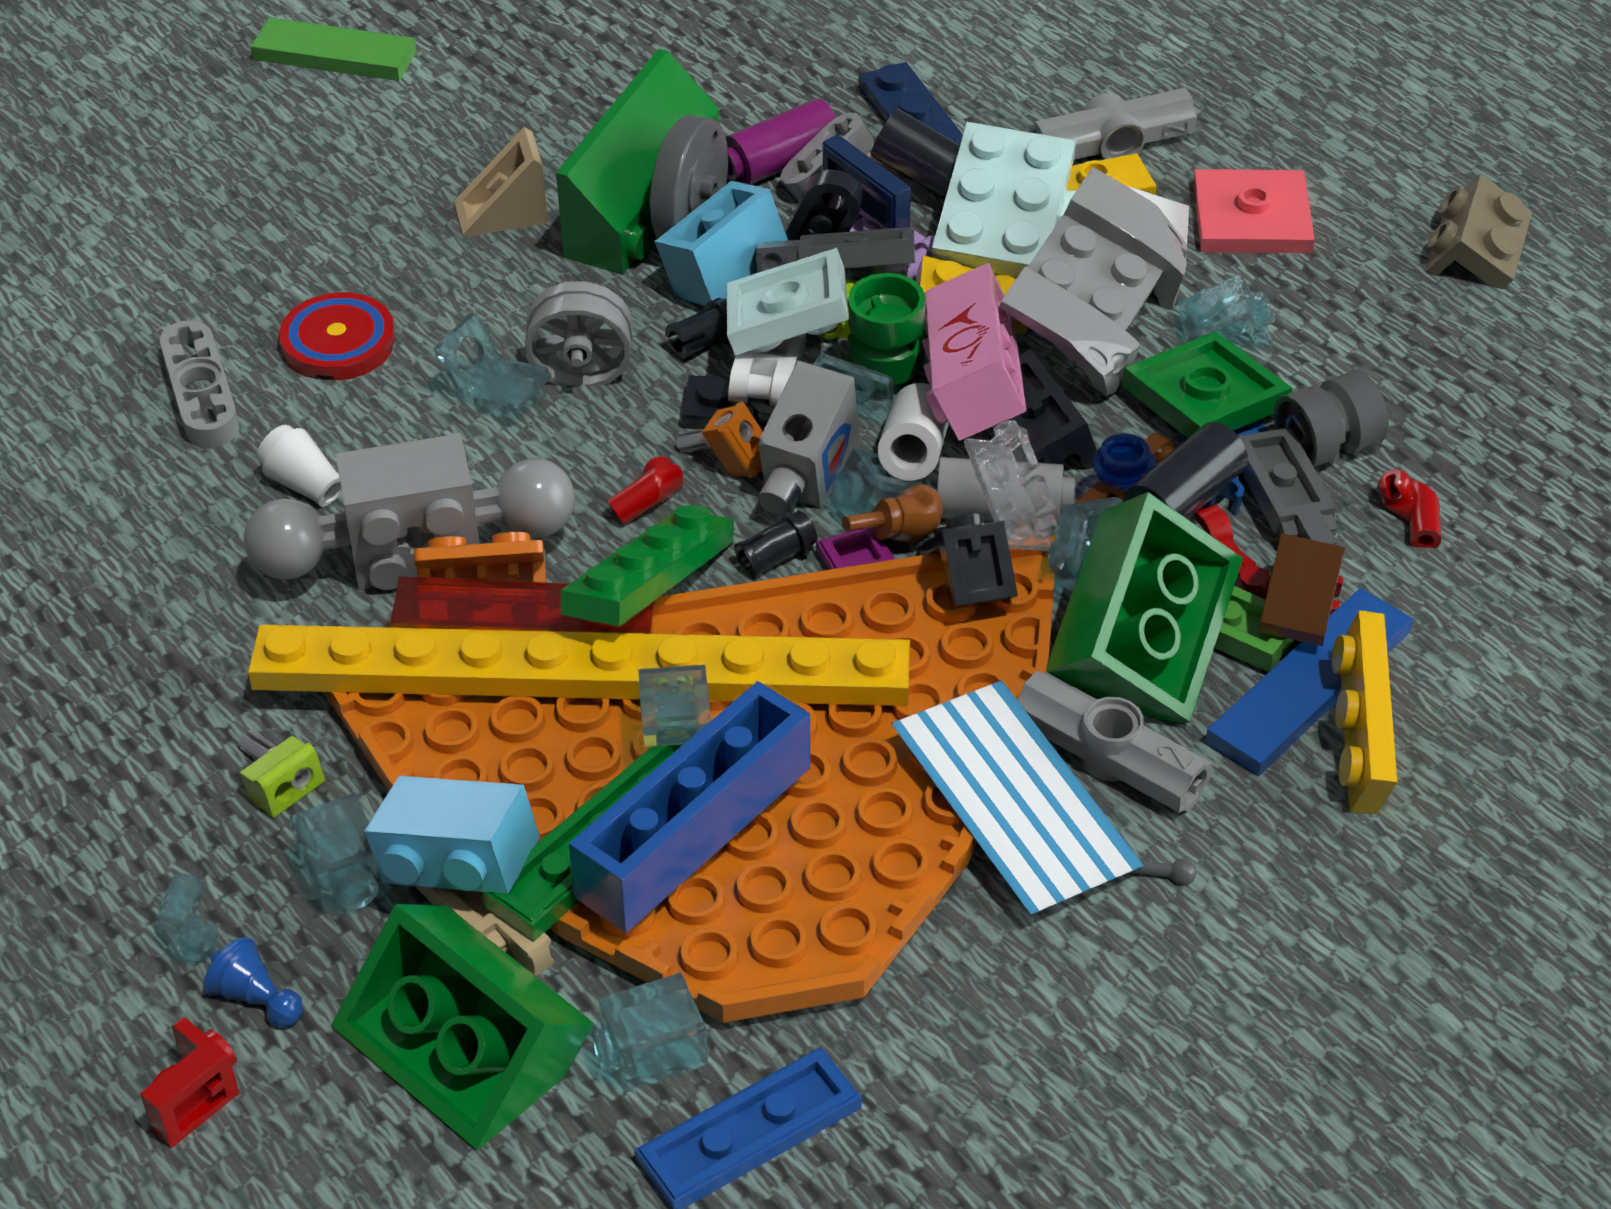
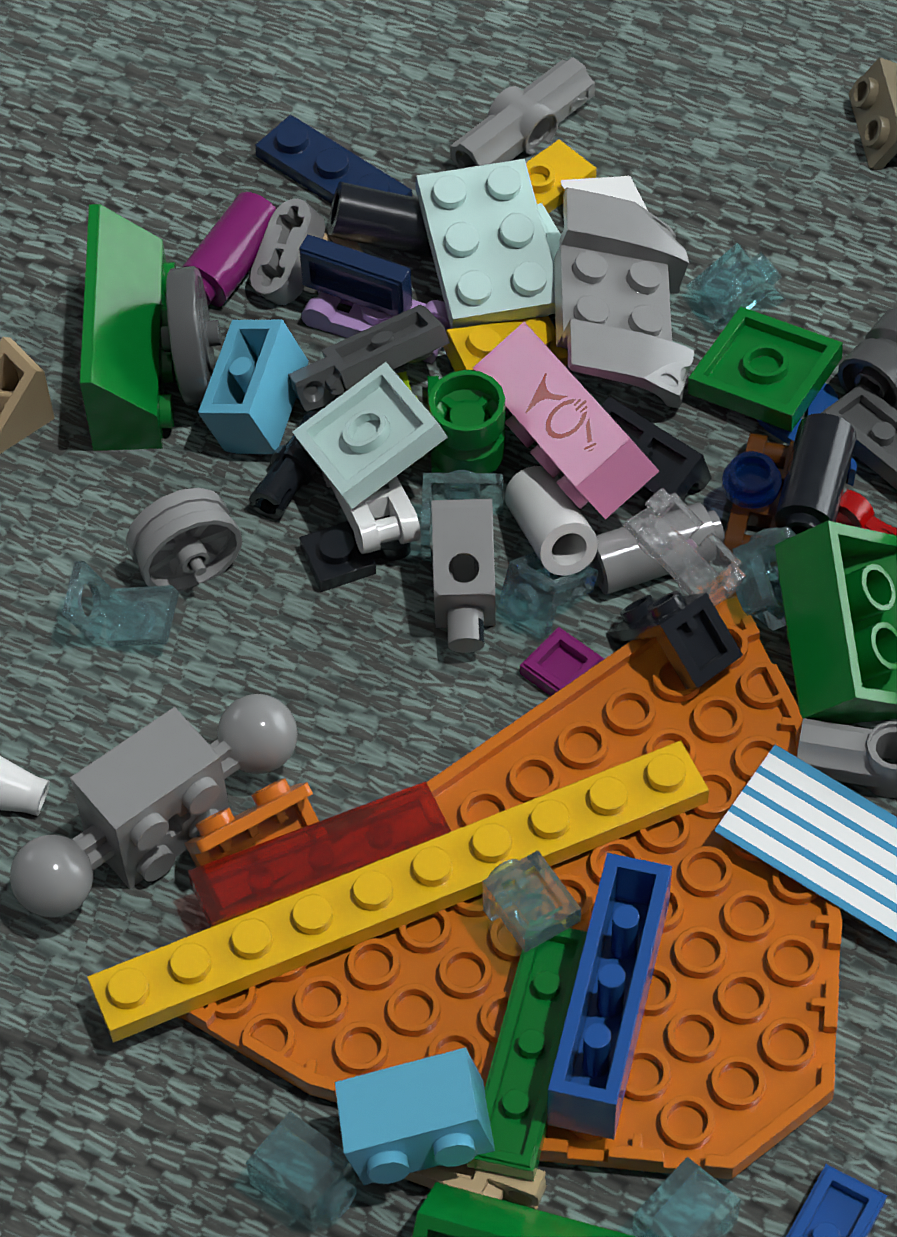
camera: 25 degrees left, 10 degrees up
(280, 772) = (190, 1108): lime piece -> none
(647, 566) = (406, 764): green plate -> none
(658, 483) = (343, 662): red arm -> none
(732, 436) = (387, 590): orange piece -> none
(777, 543) = (494, 670): black pin -> none
(822, 209) = (334, 313): black plate -> none
(902, 518) = (589, 612): dark orange piece -> none
(1253, 211) = (692, 162): coral plate -> none

